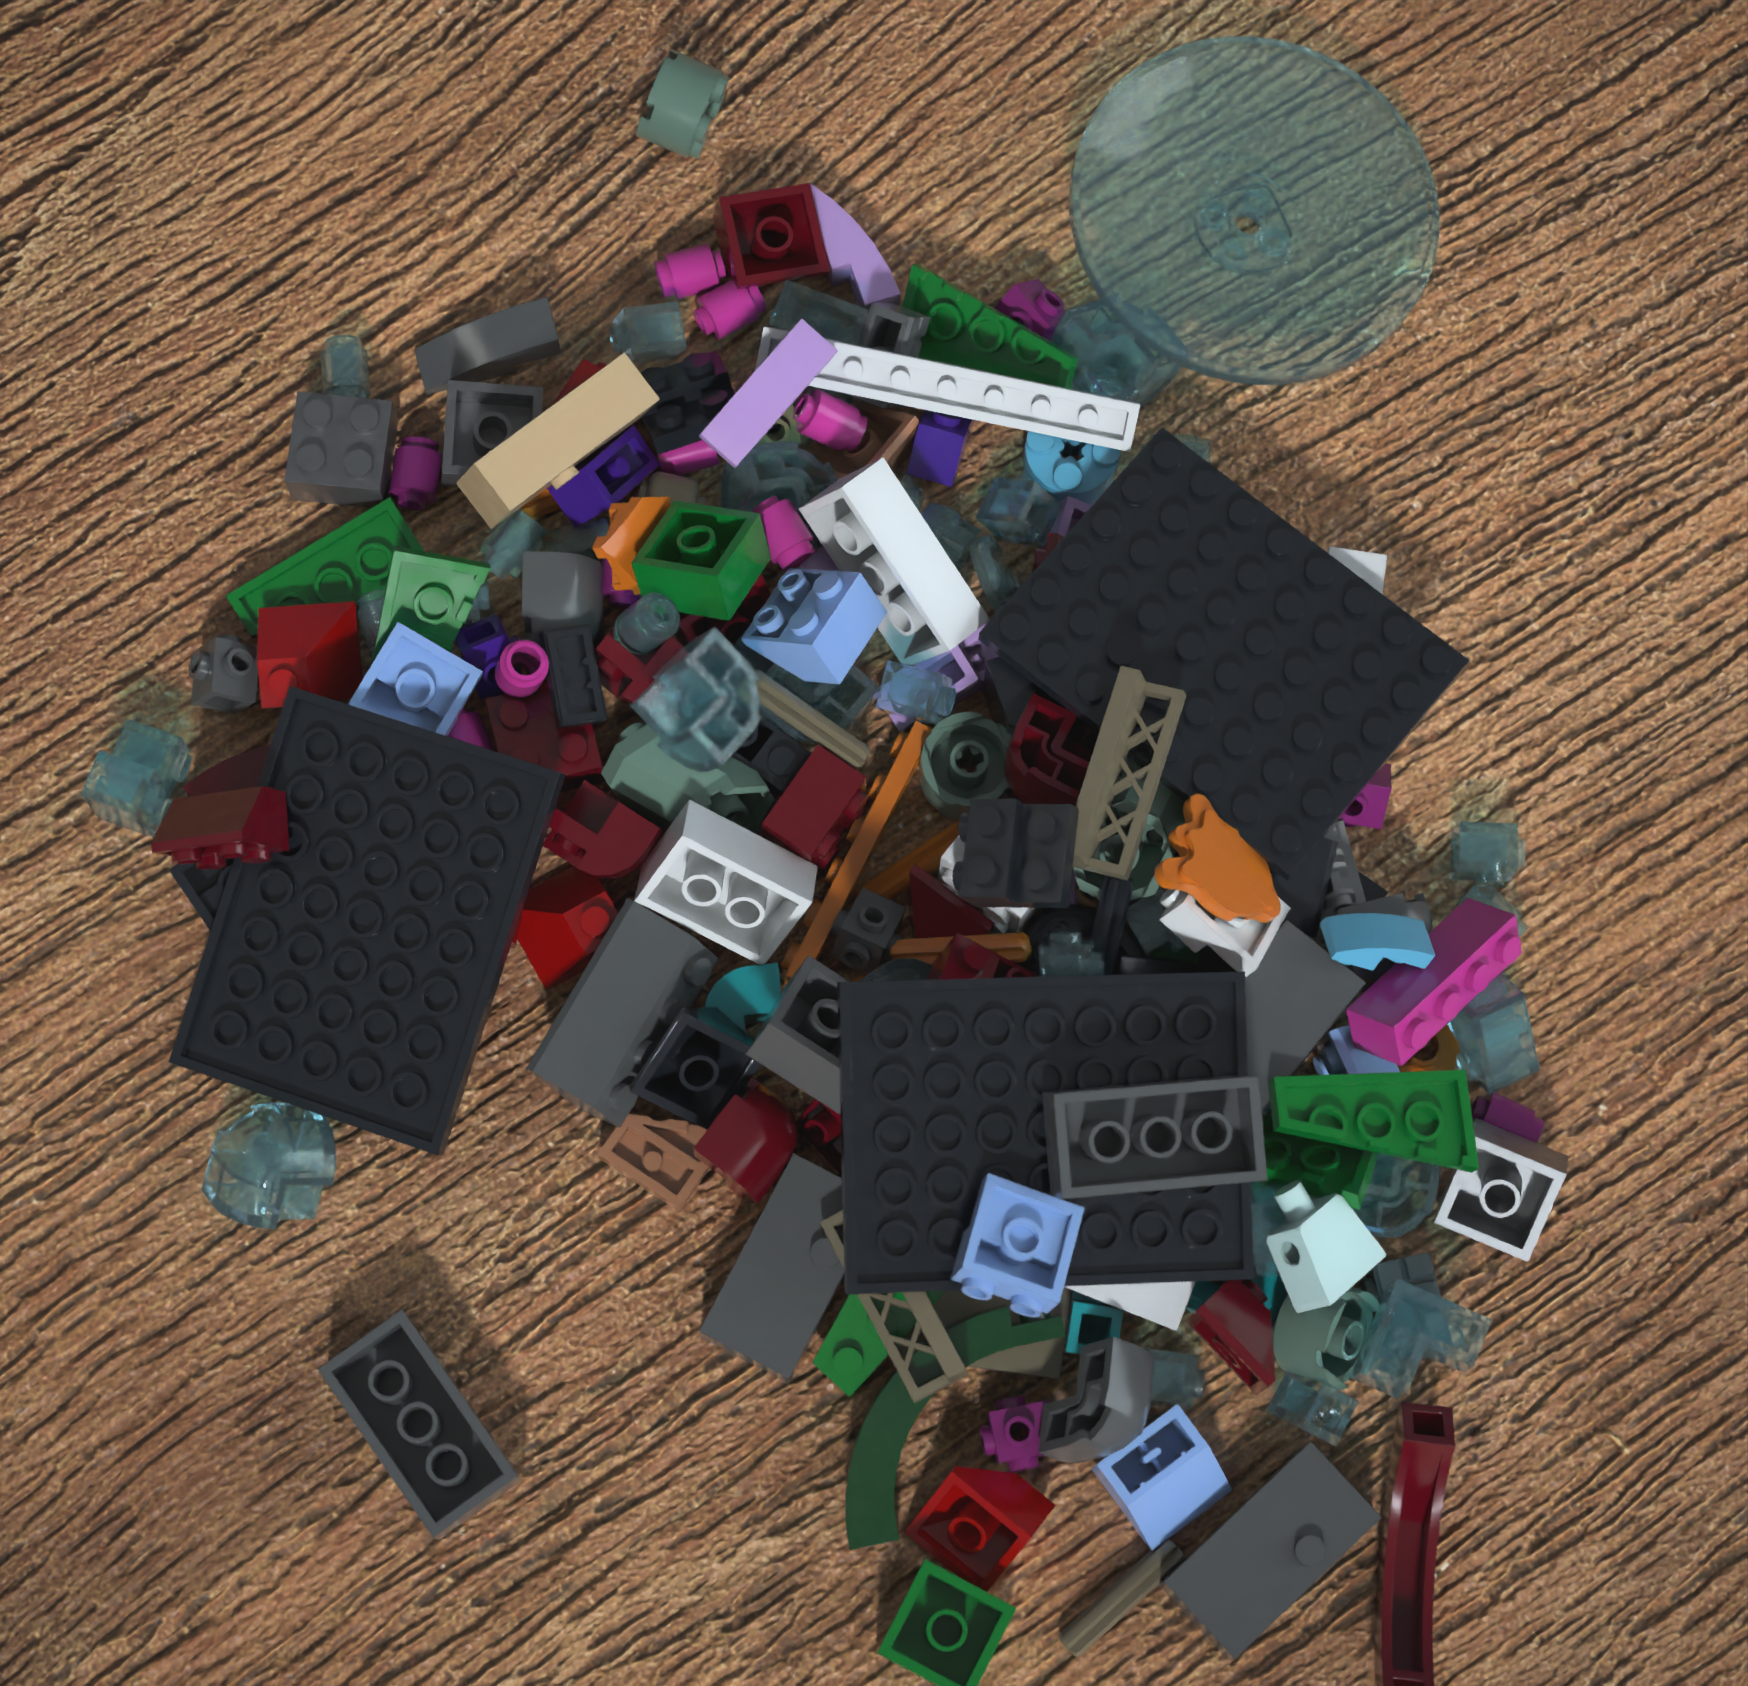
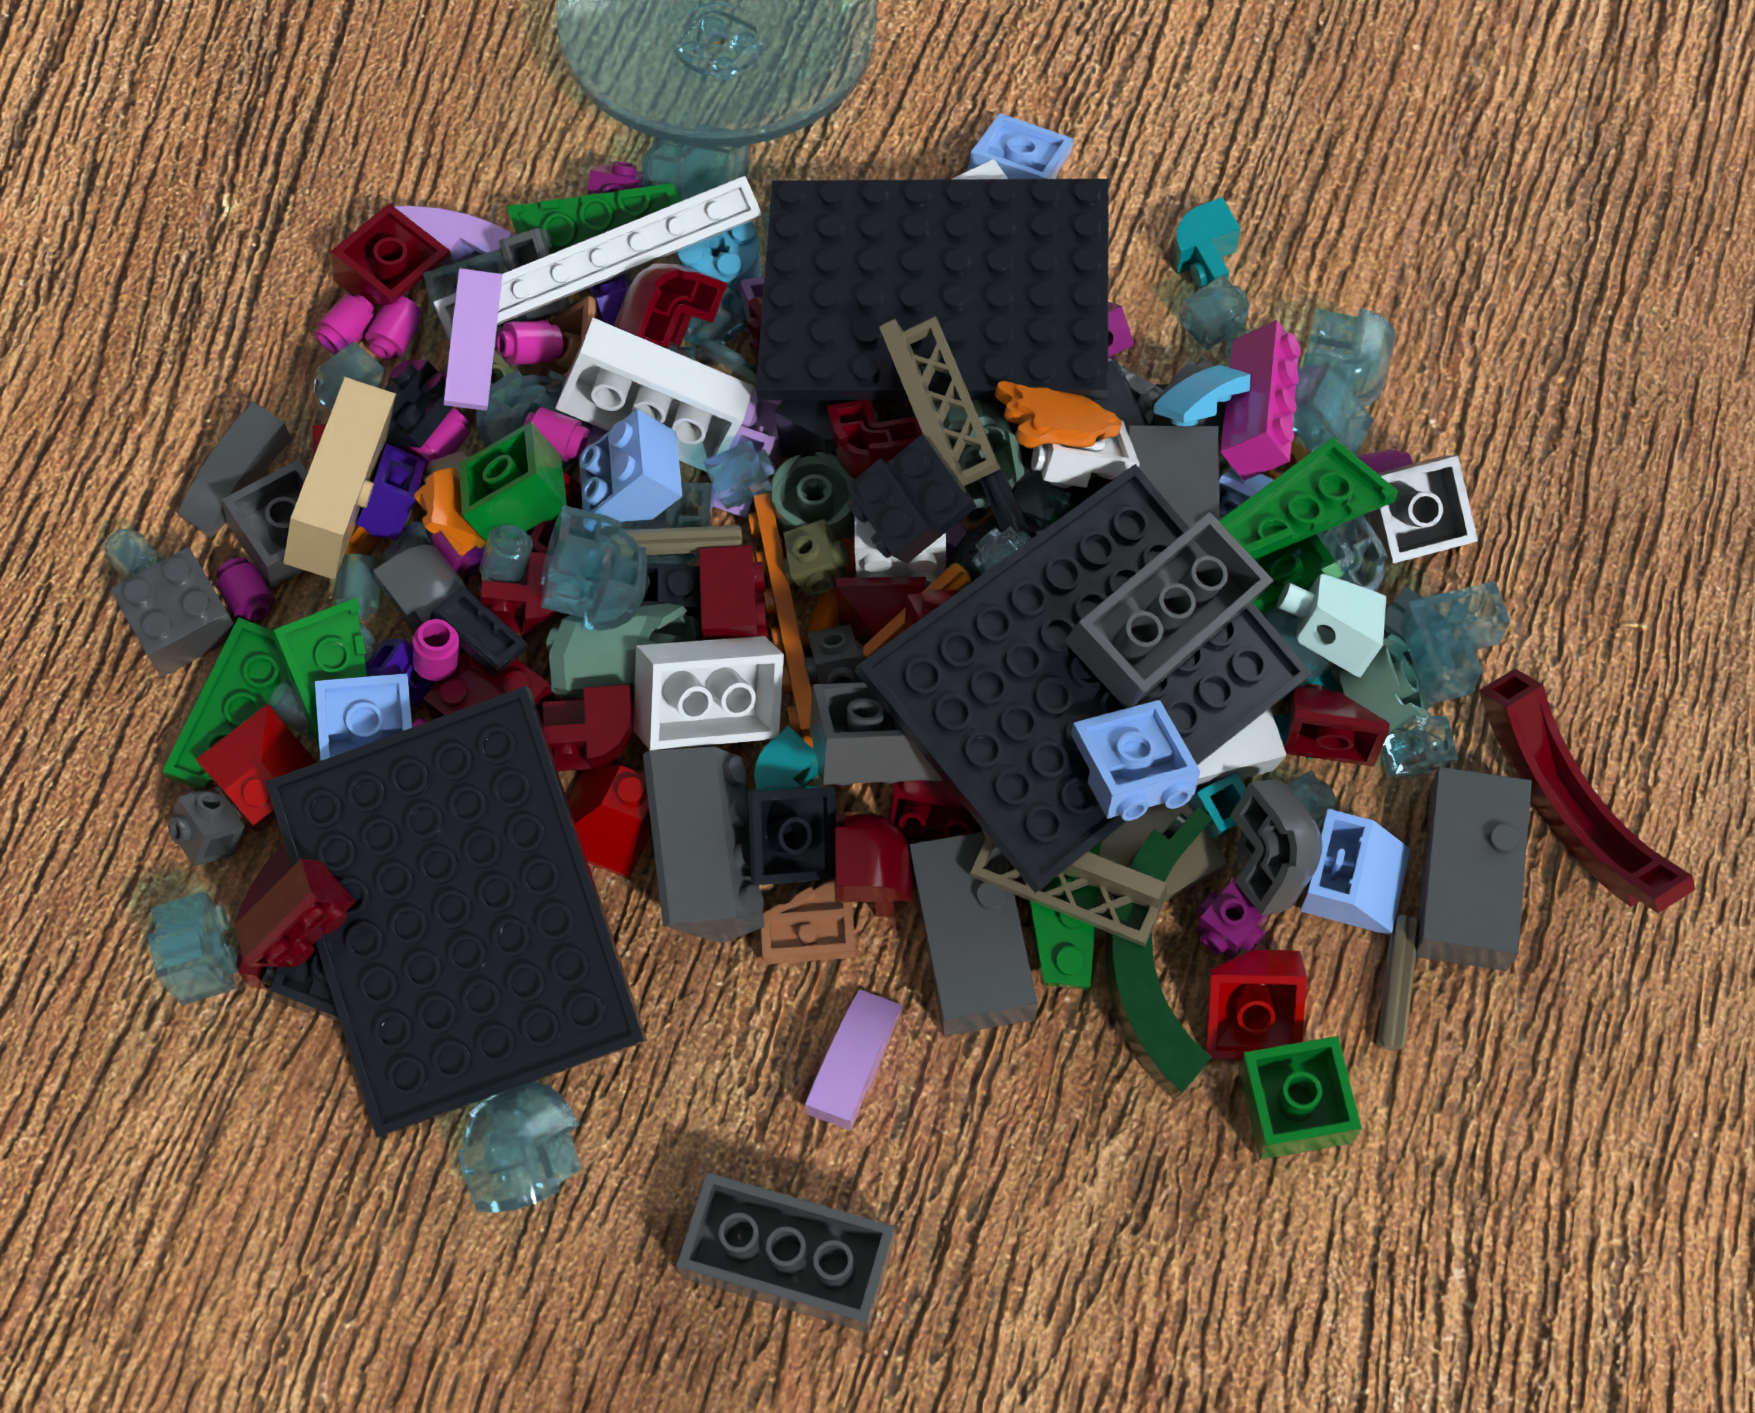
camera: 30 degrees left, 10 degrees down
(606, 1300) = (853, 1060): none -> lavender slope
(683, 105) = (255, 217): sand green brick -> none
(921, 824) = (814, 558): none -> olive brick
(970, 476) = (665, 299): none -> dark red brick
(1431, 558) = (1022, 149): none -> light blue plate
(1537, 767) = (1203, 239): none -> teal brick
(1570, 991) = (1354, 348): none -> clear light blue brick

